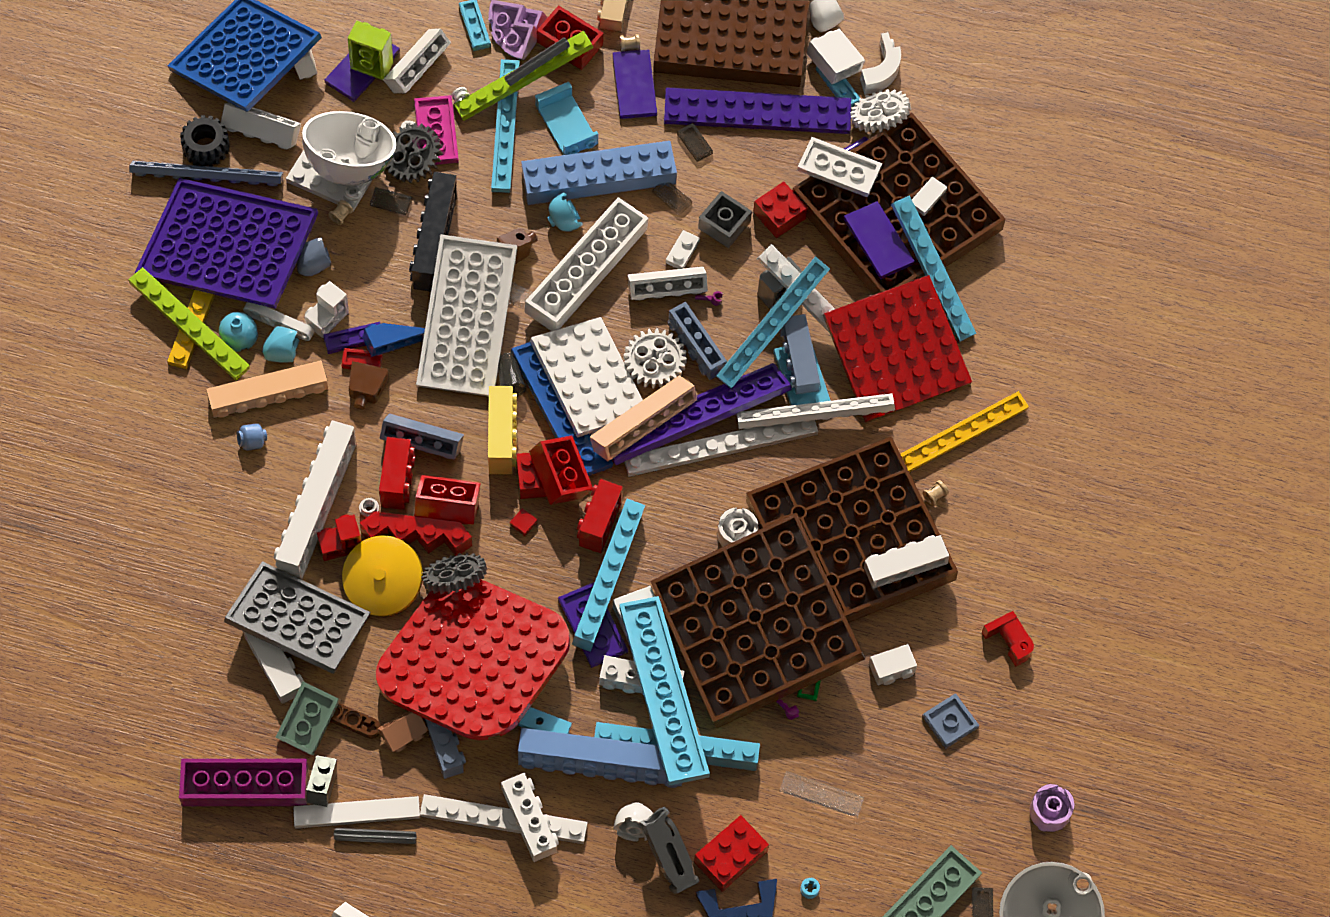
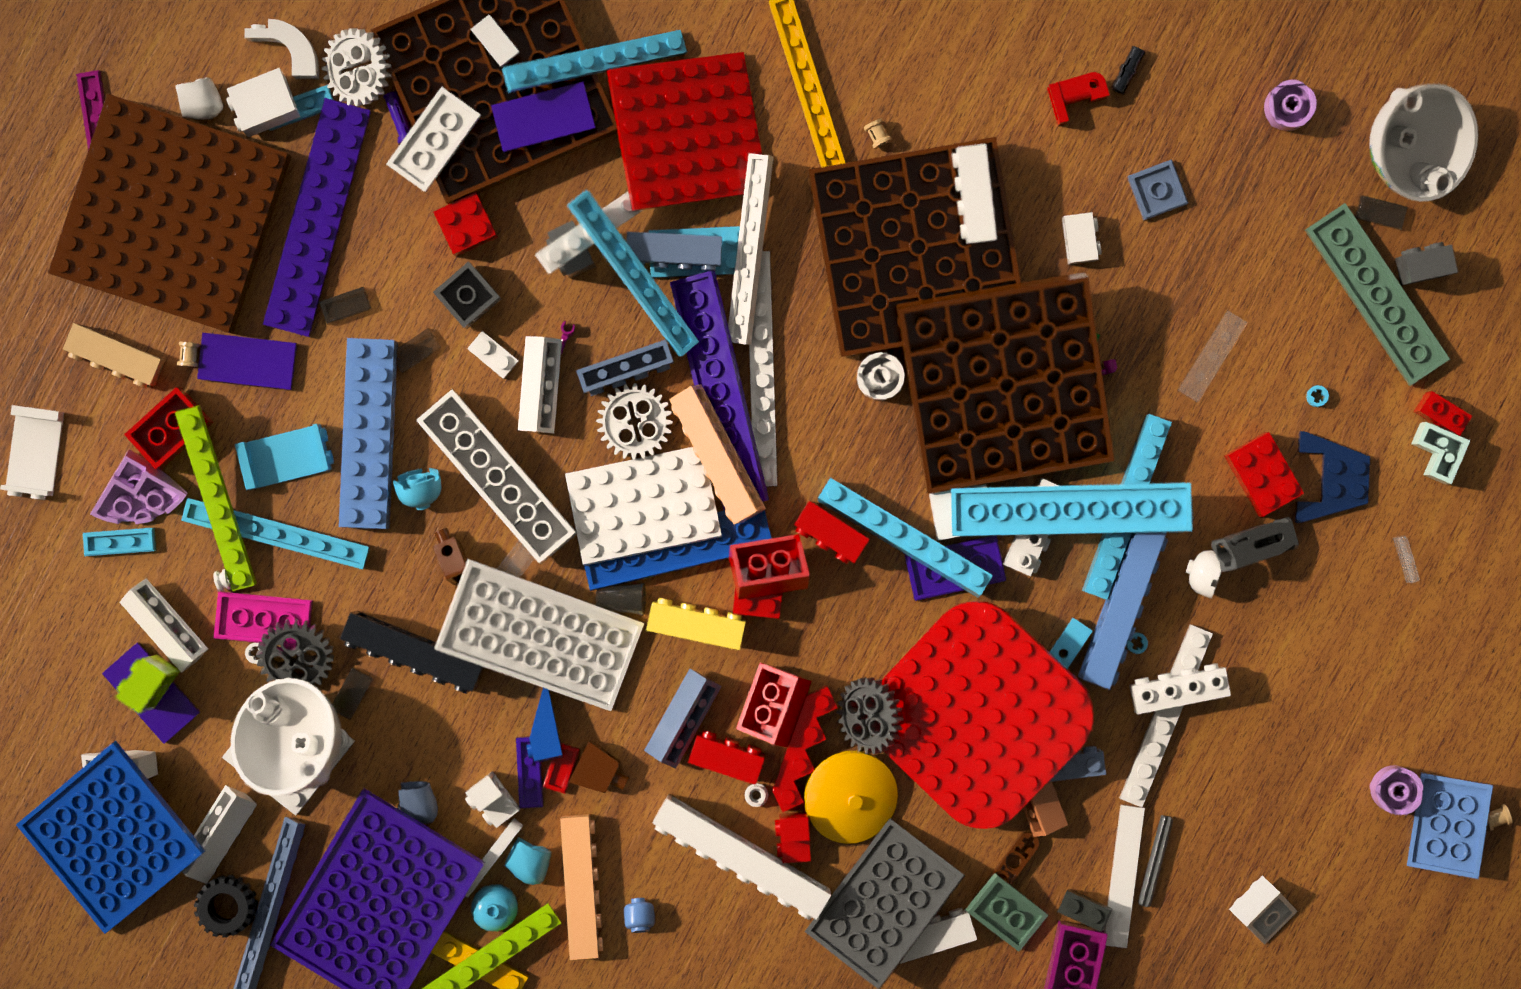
camera: 75 degrees left, 25 degrees up
(340, 212) = (357, 757): tan bush -> none
(523, 522) = (811, 620): red tile -> none
(537, 61) = (207, 480): dark grey axle -> none
(558, 776) = (1144, 641): none -> medium azure bush
(1043, 676) = (1128, 70): none -> black pin

